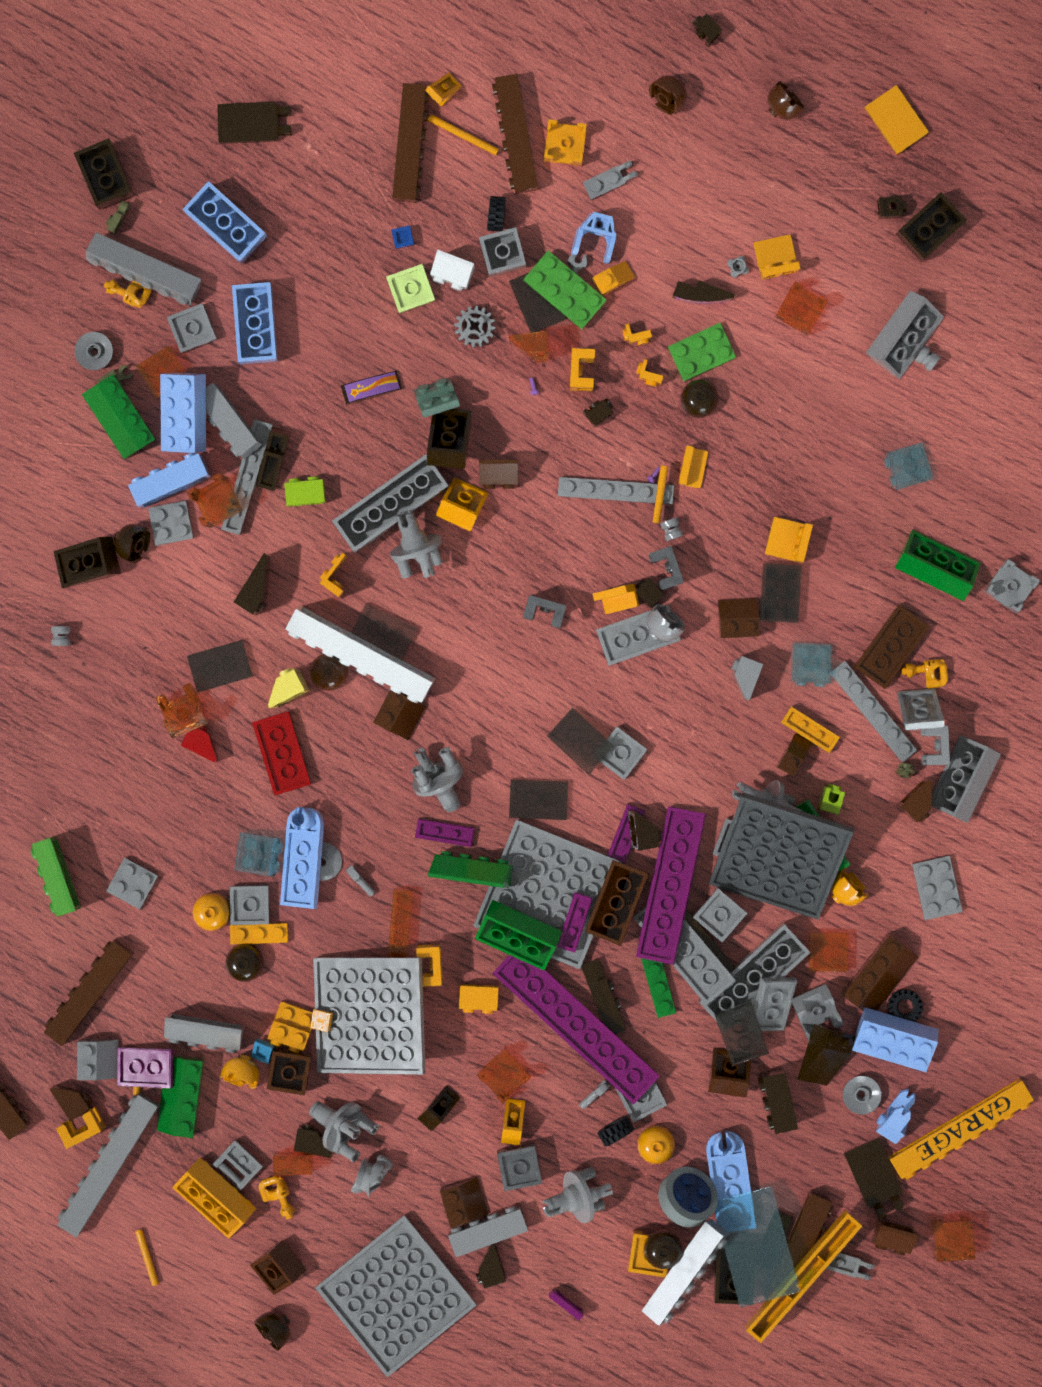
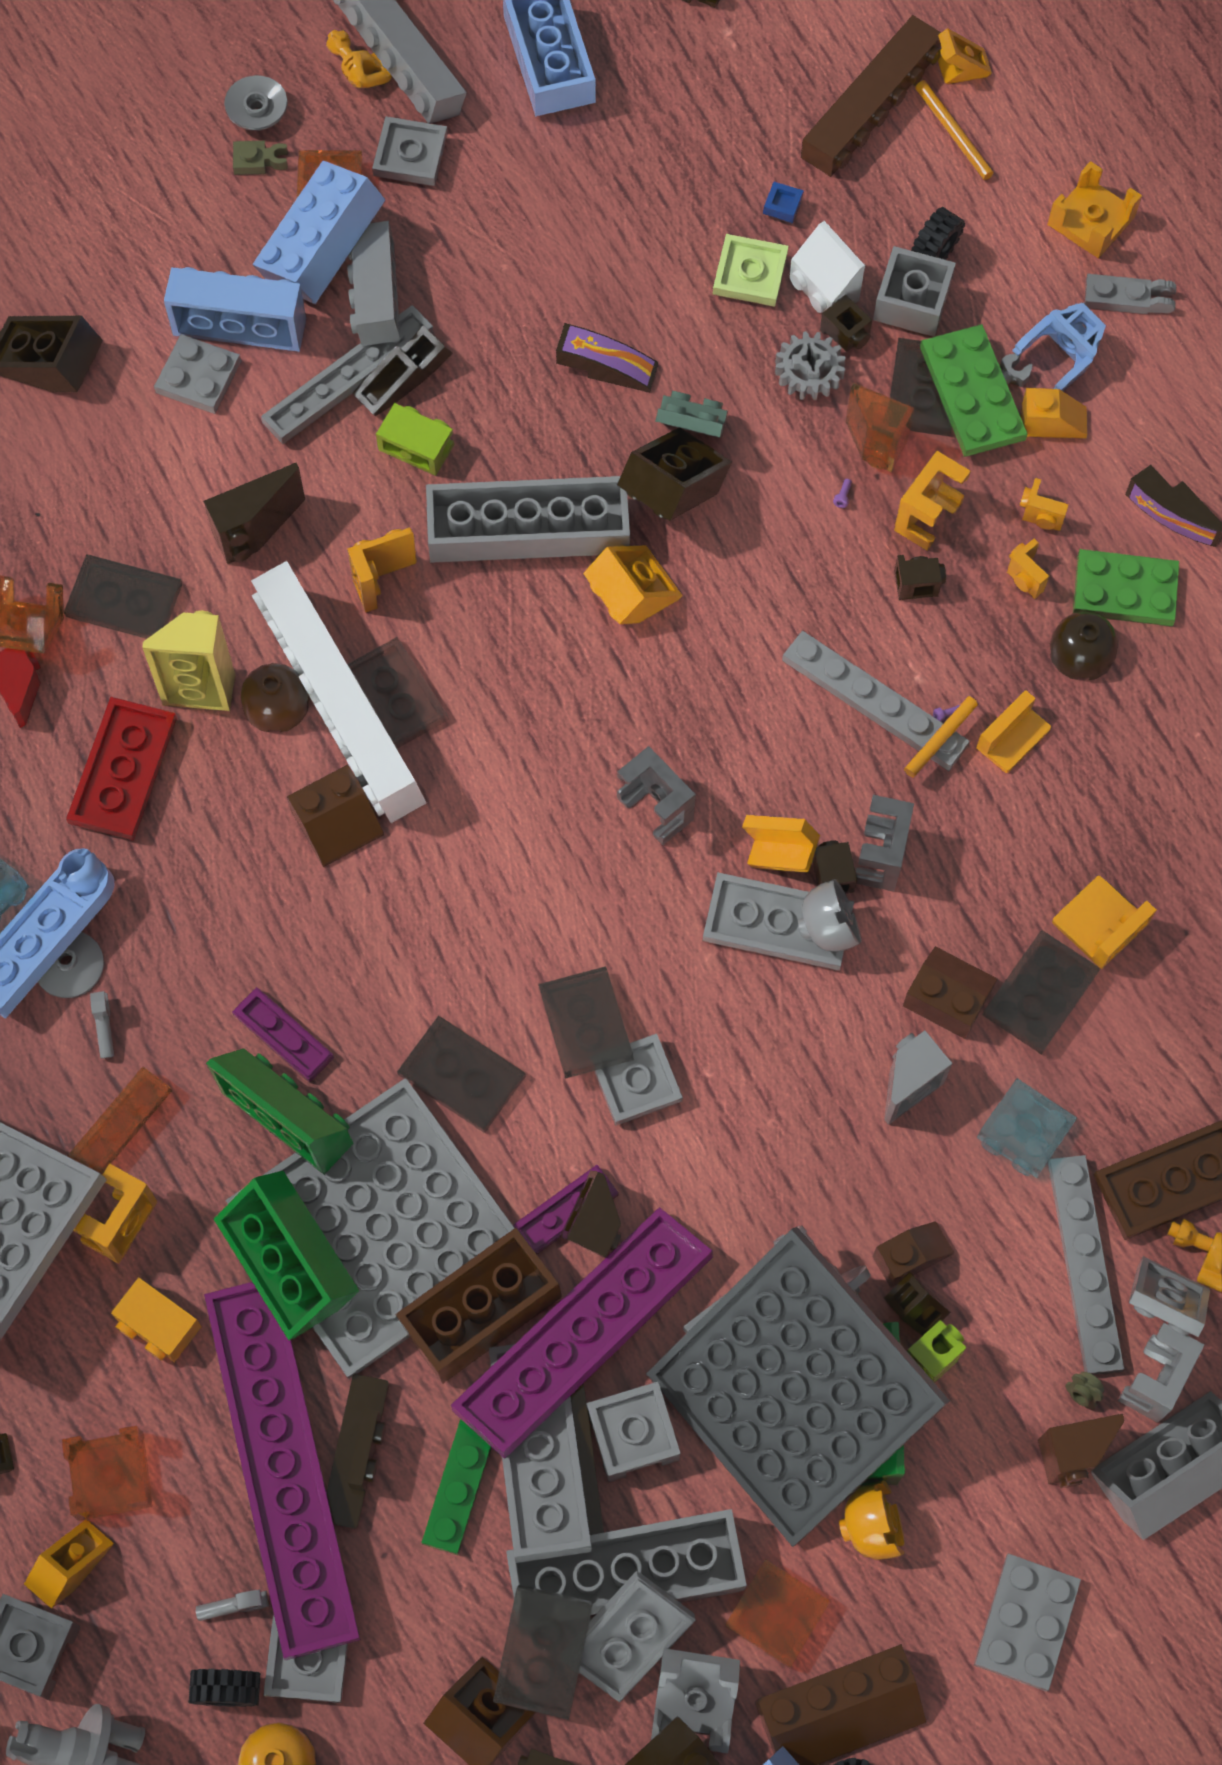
camera: 30 degrees right, 20 degrees down
(118, 416) = (229, 195): green slope -> none
(131, 542) = (125, 360): dark brown cylinder -> none
(215, 501) = (279, 376): clear orange panel -> none
(255, 323) = (500, 187): light blue brick -> none
(416, 546) = (526, 587): light grey piece -> none
(438, 778) = (326, 937): light grey piece -> none
(474, 286) = (846, 324): none -> dark brown brick
(498, 473) = (716, 566): reddish brown slope -> none
(516, 134) = (1029, 165): reddish brown brick -> none
(574, 922) = (390, 1293): magenta tile -> none
(673, 533) = (928, 798): light grey wheel -> none
(810, 729) = (964, 1228): light orange plate -> none
(810, 781) = (916, 1304): none -> dark brown brick

